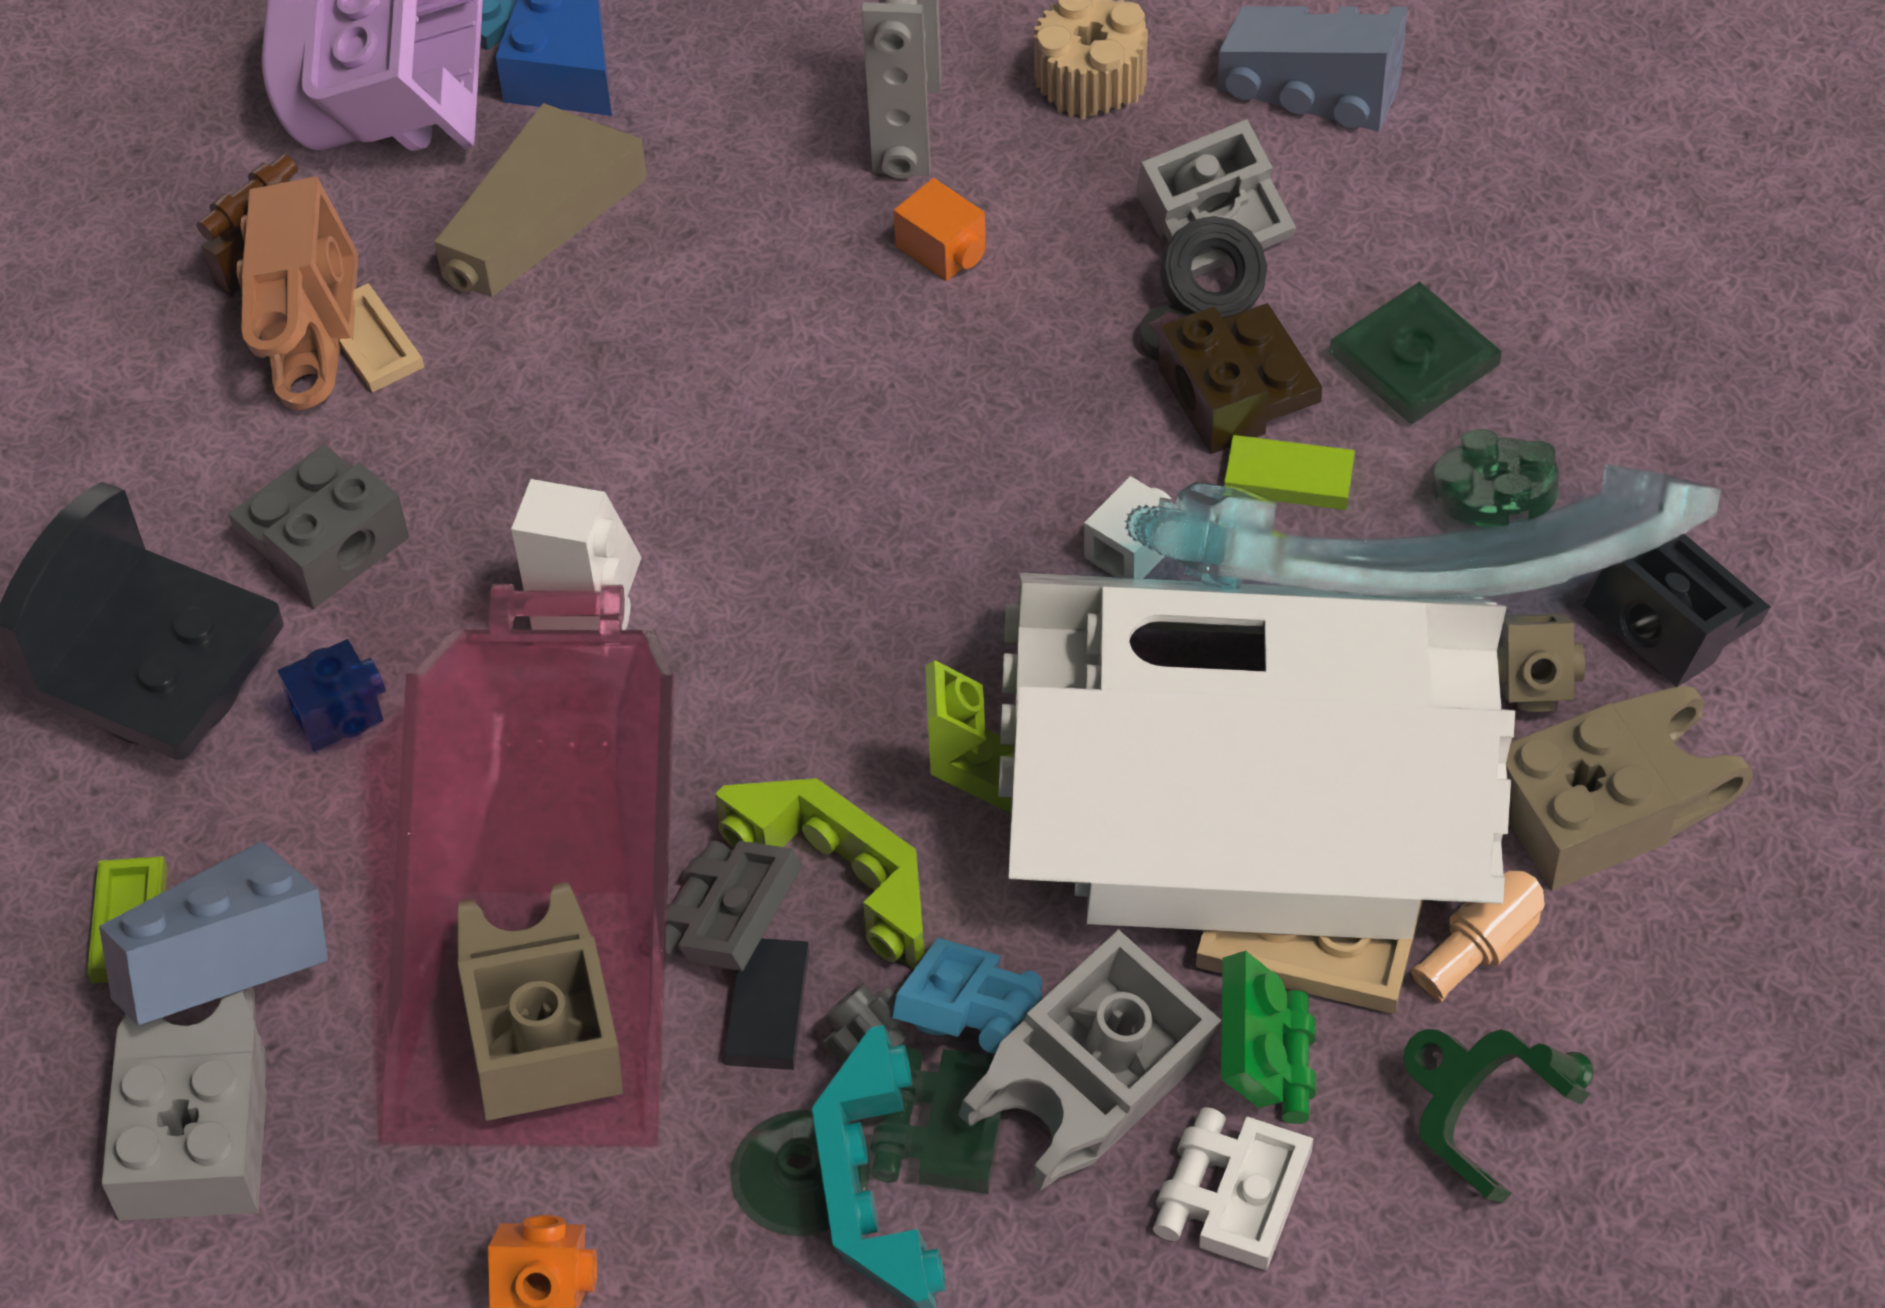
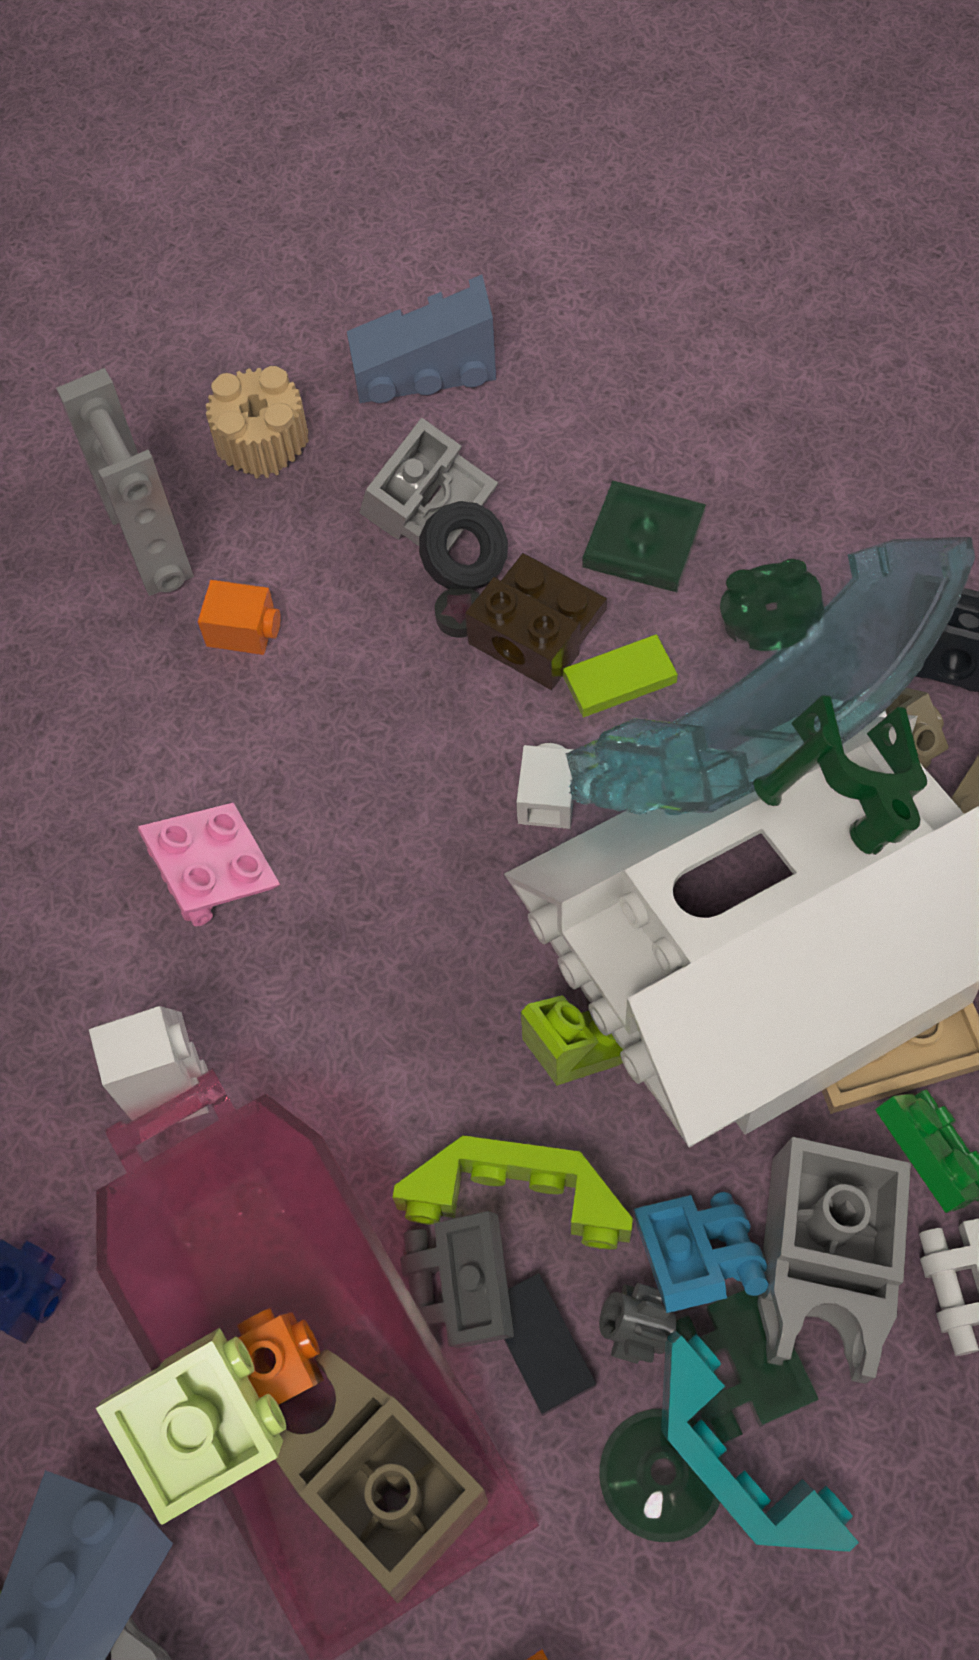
camera: 30 degrees left, 10 degrees up
(407, 849) = (194, 1425): none -> yellowish green plate
(513, 864) = (294, 1353): none -> orange brick
(756, 433) = (207, 860): none -> bright pink hinge
(1386, 638) = (883, 796): none -> dark green piece

